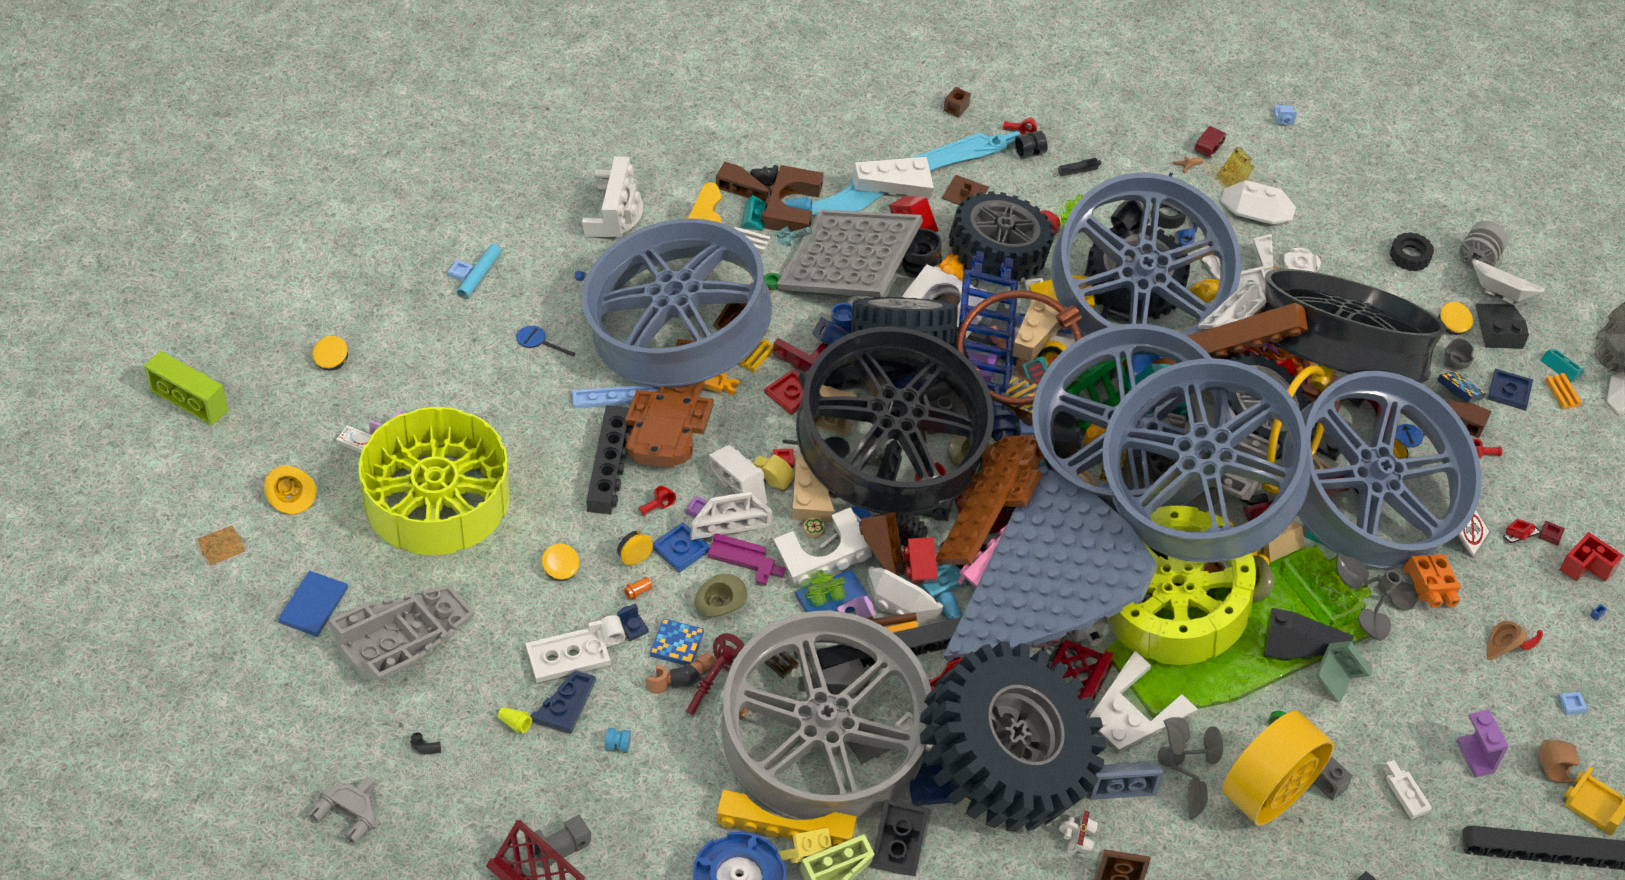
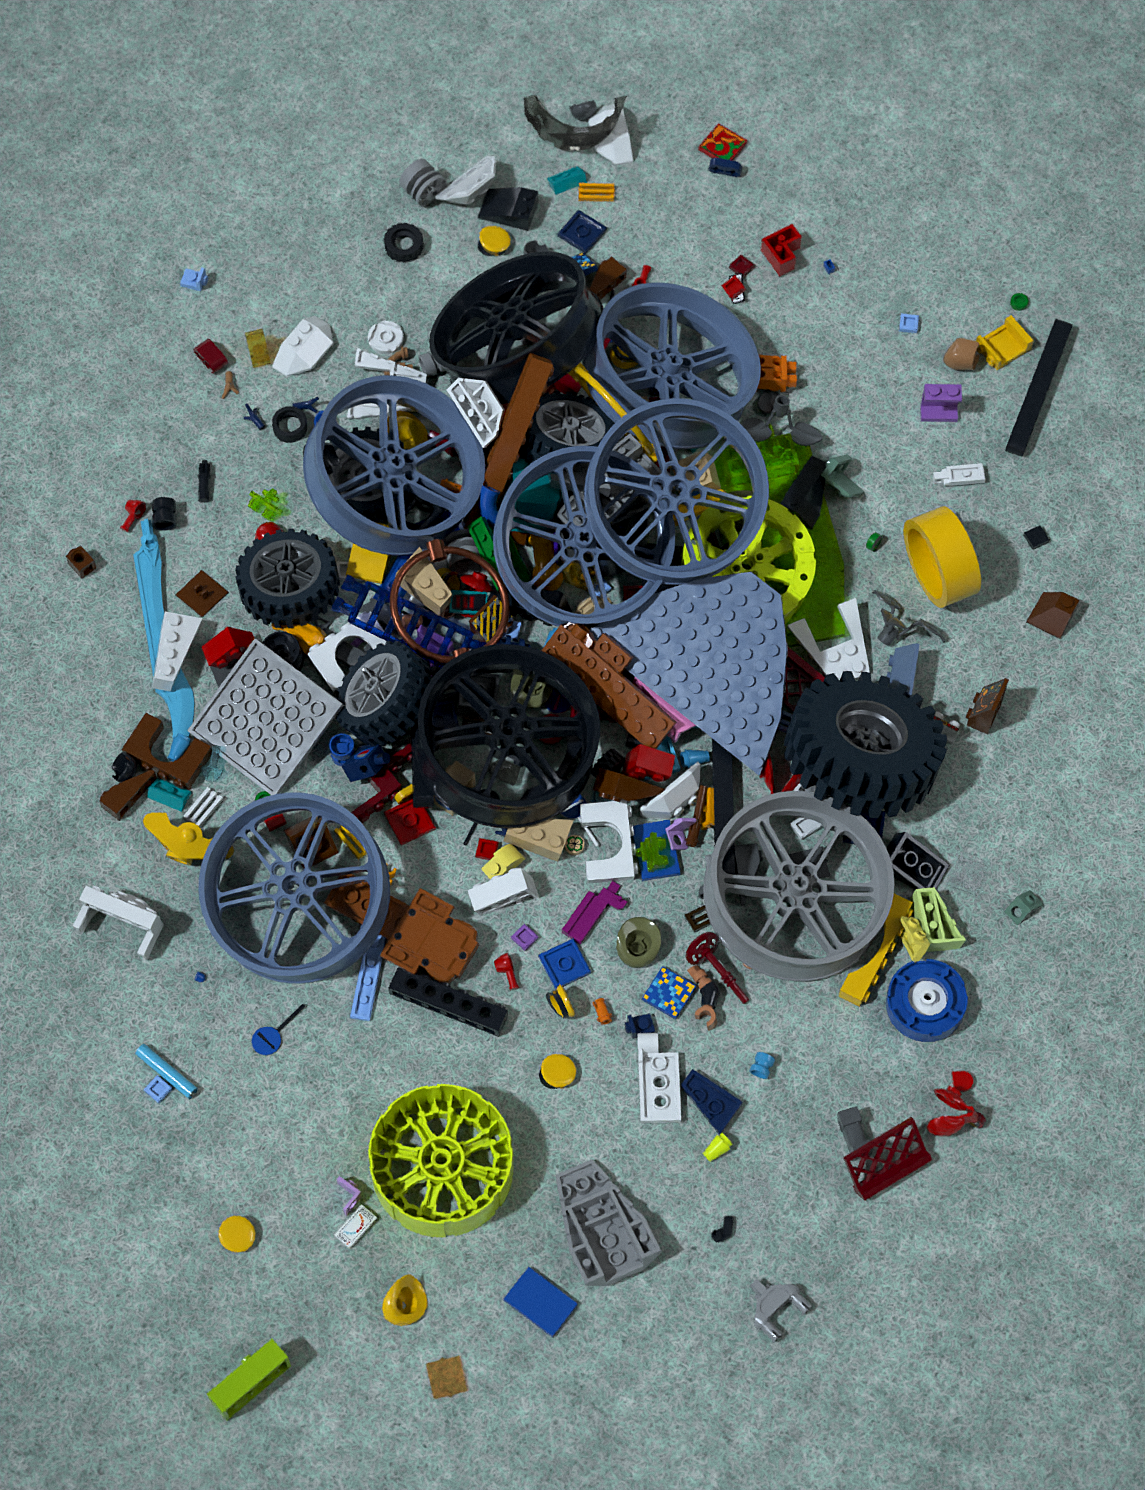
camera: 70 degrees left, 15 degrees up
(731, 515) = (548, 912): white wedge -> none
(1509, 636) = (840, 343): medium nougat piece -> none

